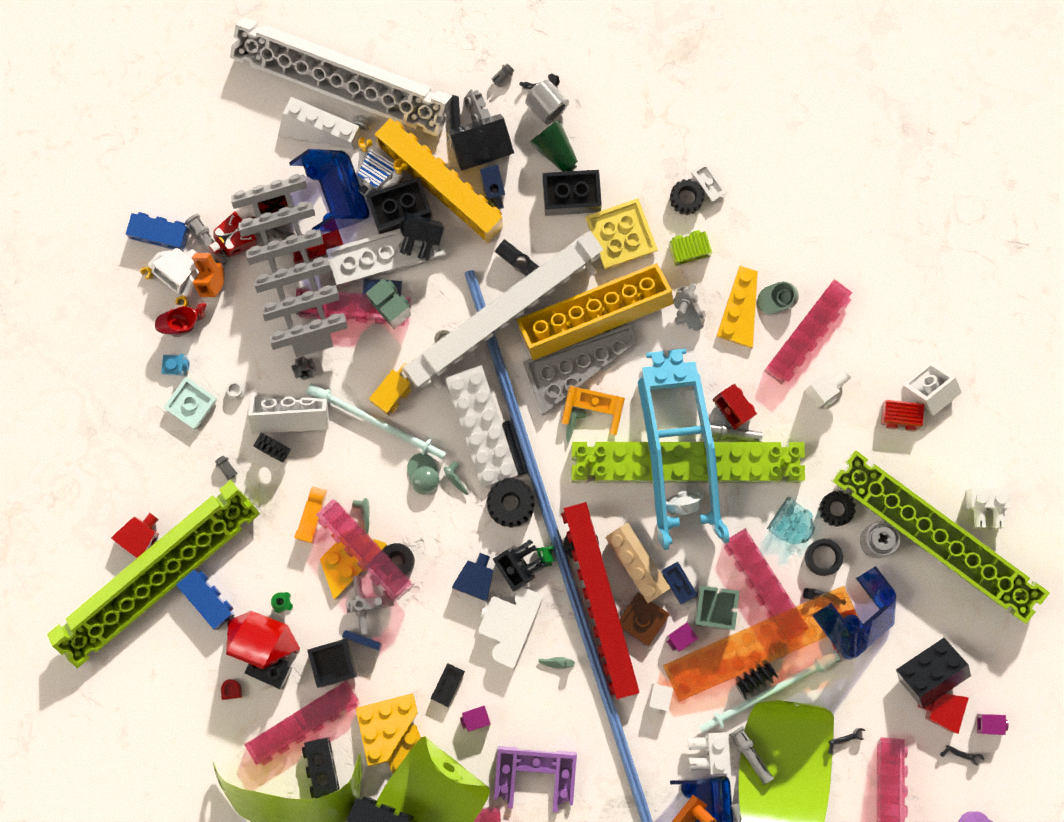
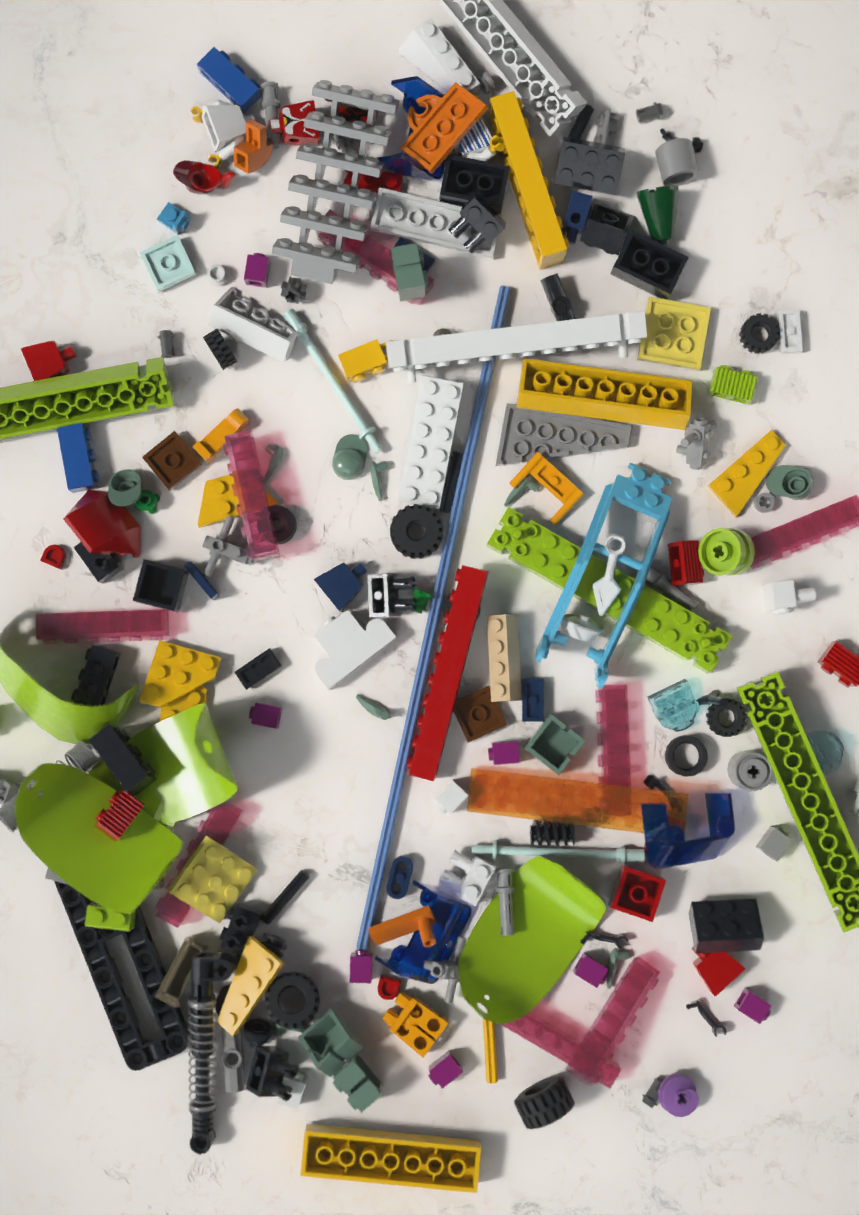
camera: 30 degrees right, 5 degrees up
(258, 601) = (124, 487): none -> sand green cap
(265, 368) = (257, 270): none -> magenta brick
(283, 558) = (172, 460): none -> reddish brown plate
(348, 175) = (441, 125): none -> orange plate
(514, 759) = (278, 773): medium lavender wedge -> none
(522, 182) = (606, 228): none -> black slope
(657, 785) = (399, 876): none -> dark blue plate
(685, 462) = (606, 588): none -> white piece
(761, 379) = (726, 551): none -> lime wheel
(764, 319) = (763, 509): none -> light grey bush
(818, 500) = (712, 698): none -> black piece
(849, 687) = (637, 893): none -> red brick
(850, 771) = (591, 970): none -> magenta brick
(863, 755) = (612, 964): none -> sand green bar
(929, 489) = (827, 750): none -> clear light blue slope
(932, 585) = (774, 842): none -> light grey brick

